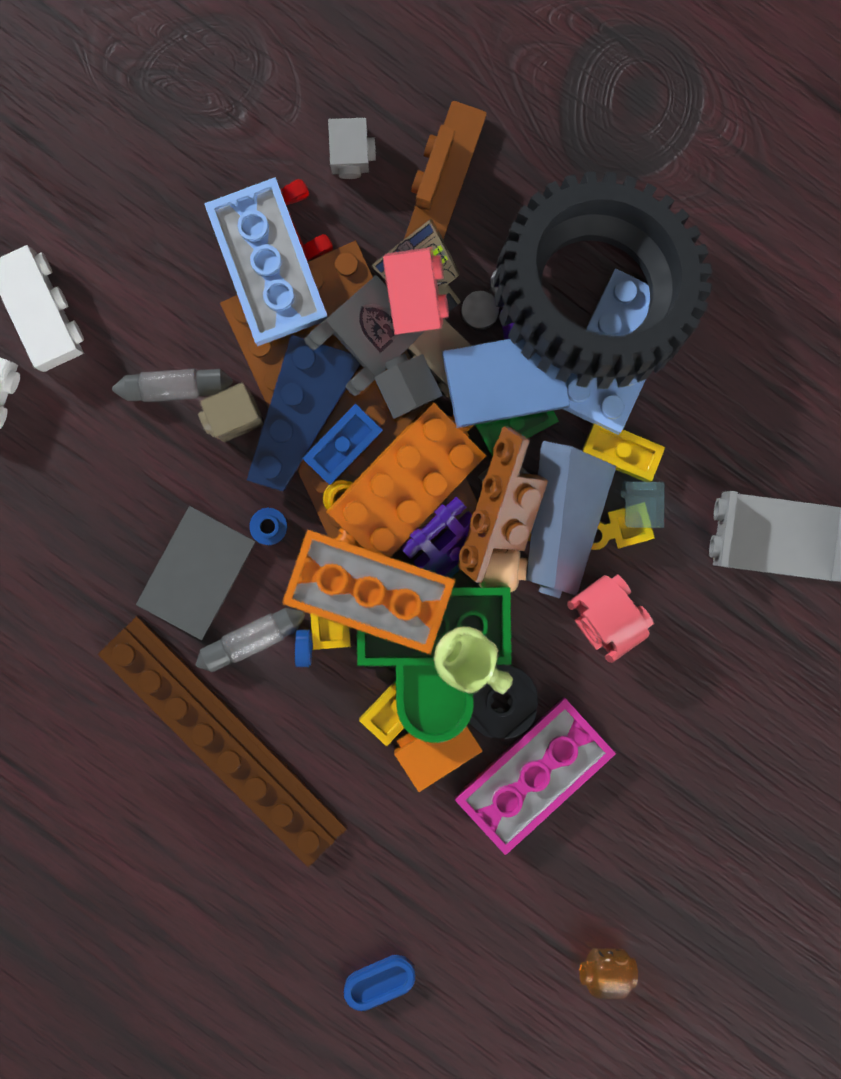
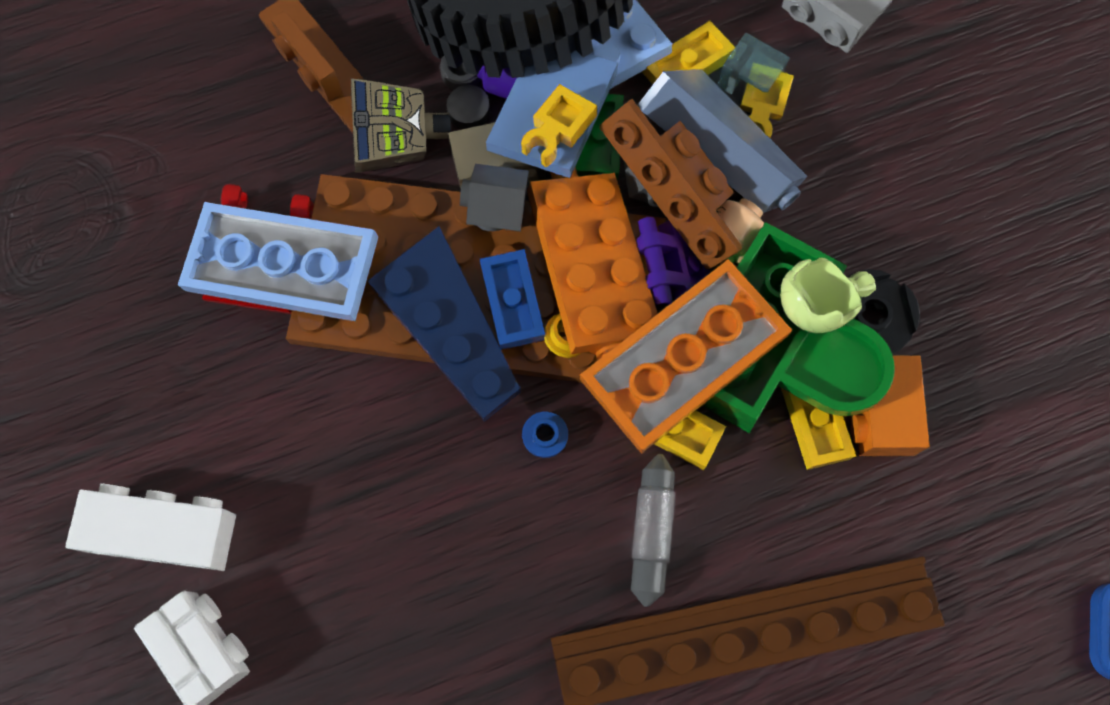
camera: 55 degrees left, 15 degrees down
(172, 385) = (333, 439): piece -> none
(196, 573) = (545, 543): dark grey tile -> none
(230, 413) = (404, 387): dark tan brick -> none
(303, 648) = (698, 477): blue tile -> none
(350, 147) = (229, 124): light grey brick -> none
(366, 331) = (418, 203): dark grey flag -> none
(415, 290) = (408, 126): coral brick -> none
(490, 397) = (559, 120): none -> yellow plate
(534, 776) = (971, 330): piece -> none
(610, 617) = (850, 154): coral brick -> none

